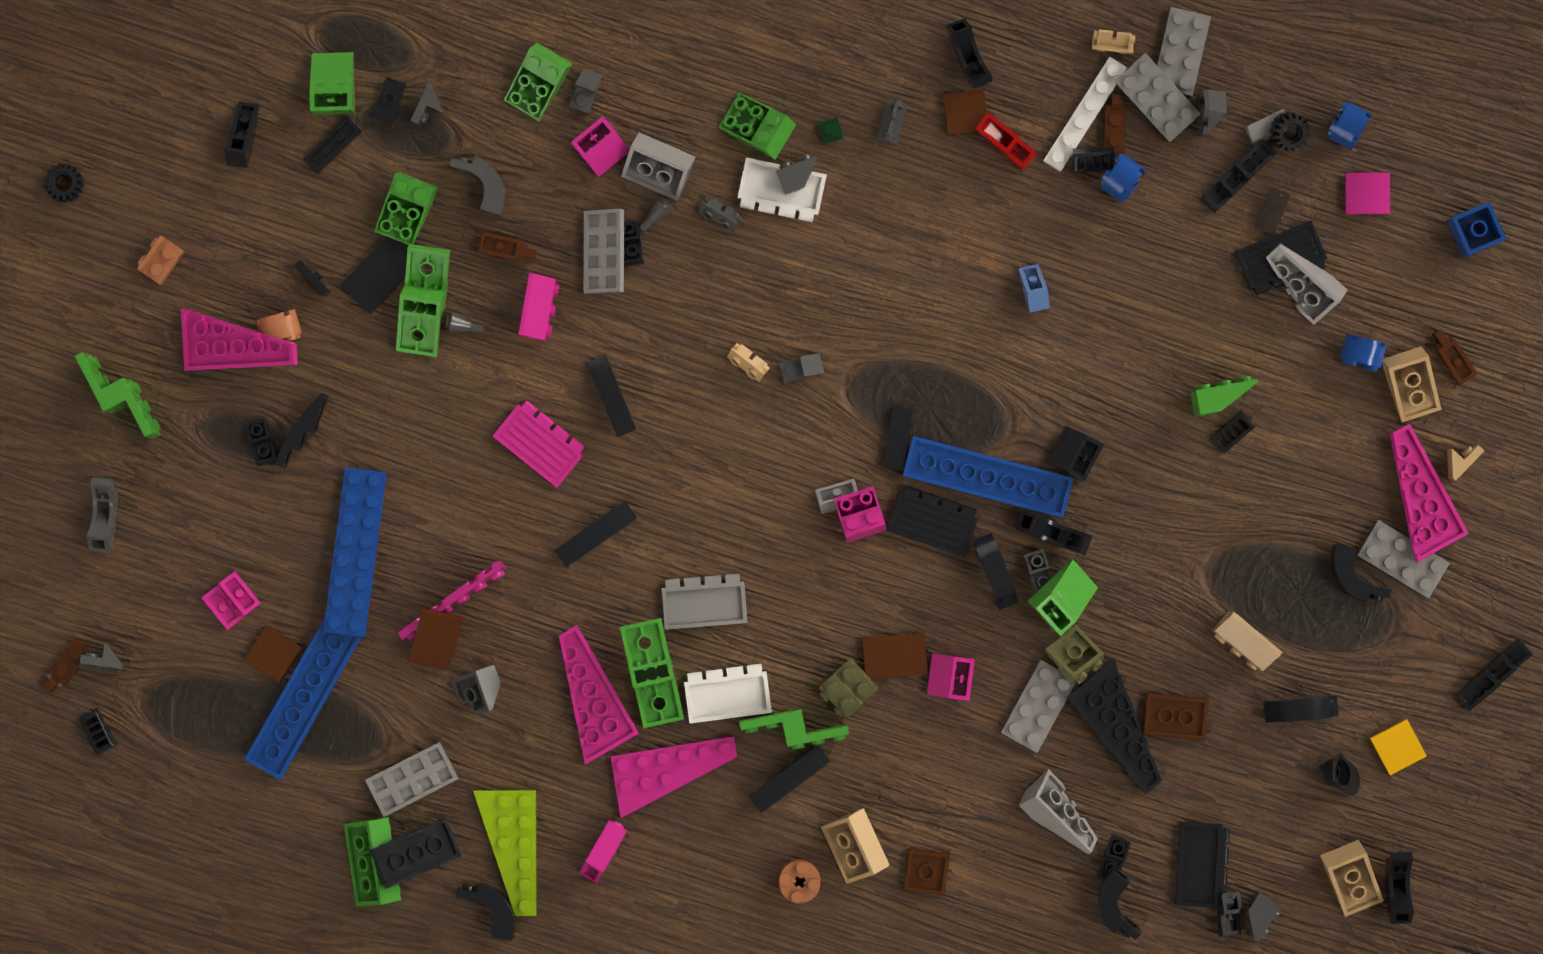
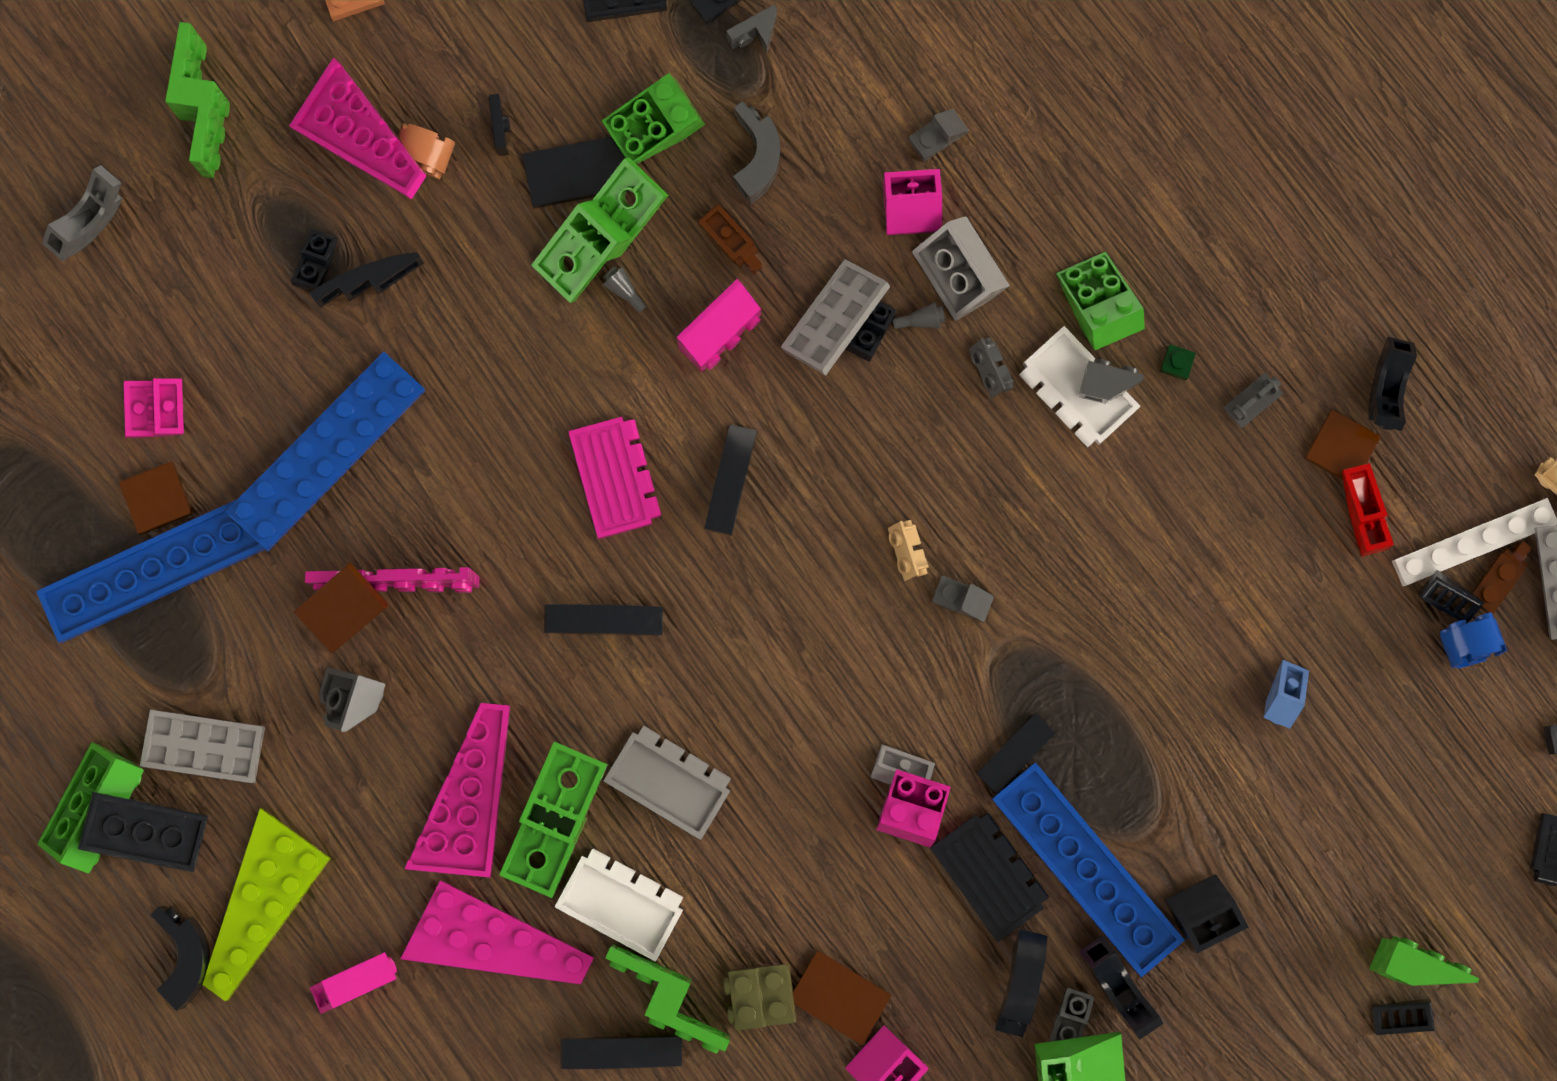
camera: 30 degrees right, 5 degrees down
(537, 81) = (894, 86): bright green slope -> none

